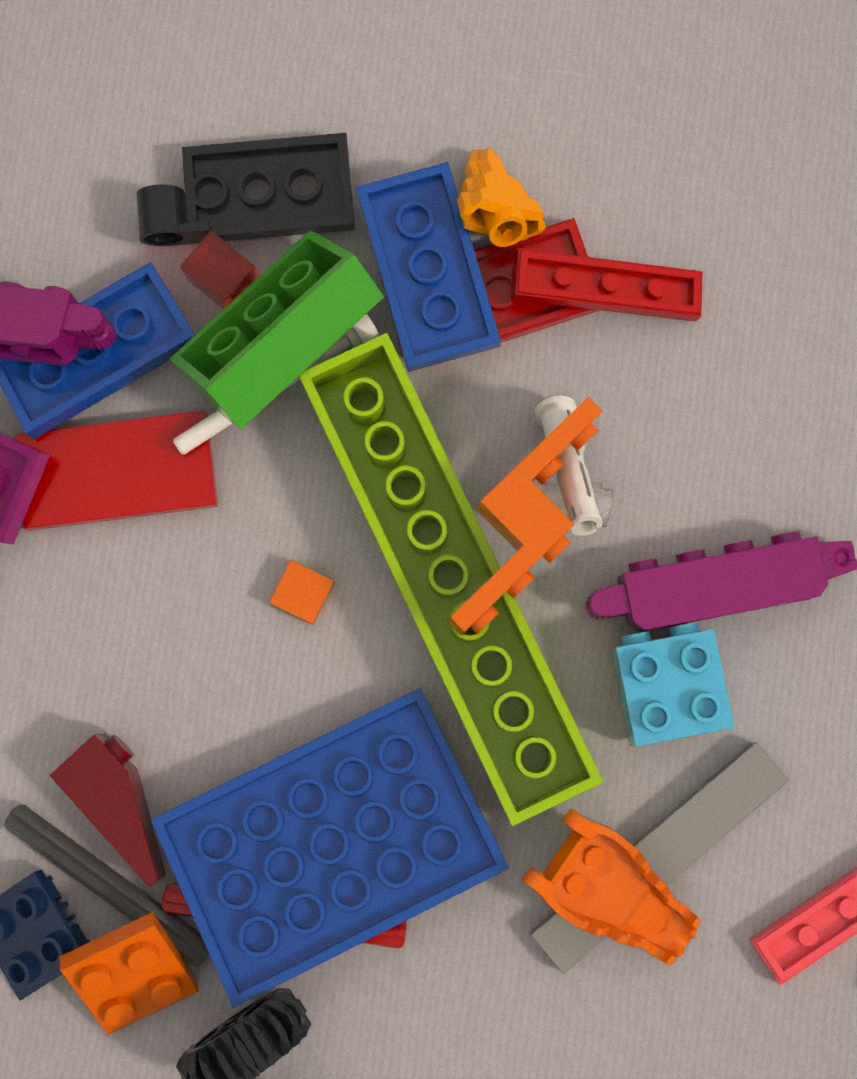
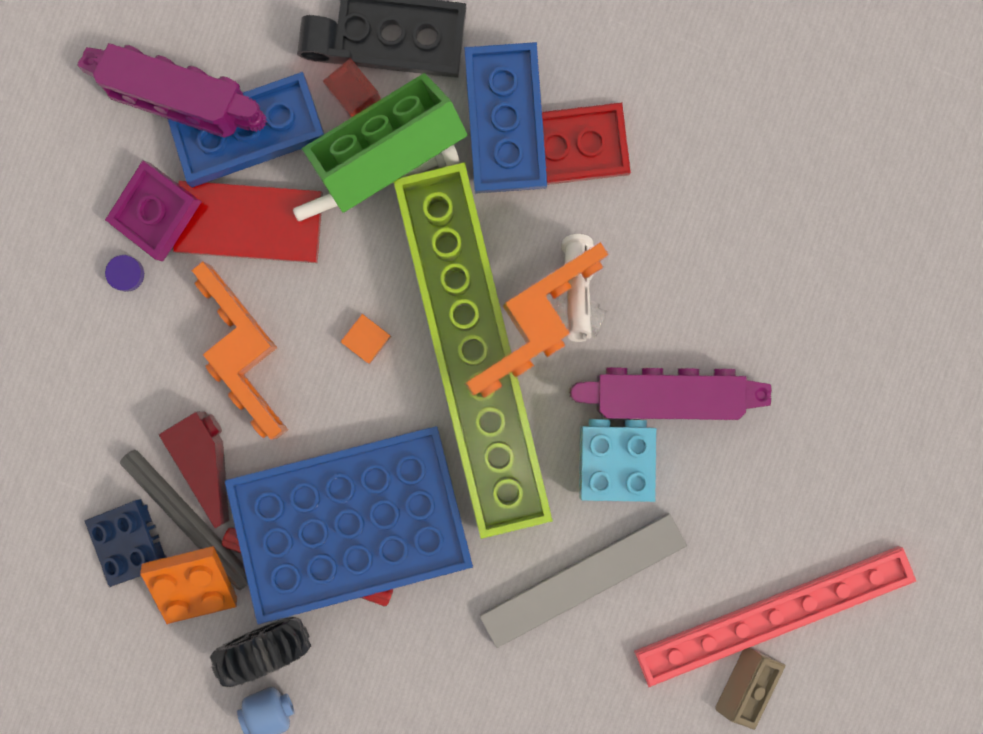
camera: 10 degrees right, 5 degrees up
(136, 645) = (238, 352): none -> orange bracket
(497, 202) = (566, 79): light orange rock -> none
(607, 285) = (635, 158): red tile -> none
(611, 891) = (542, 597): orange animal -> none

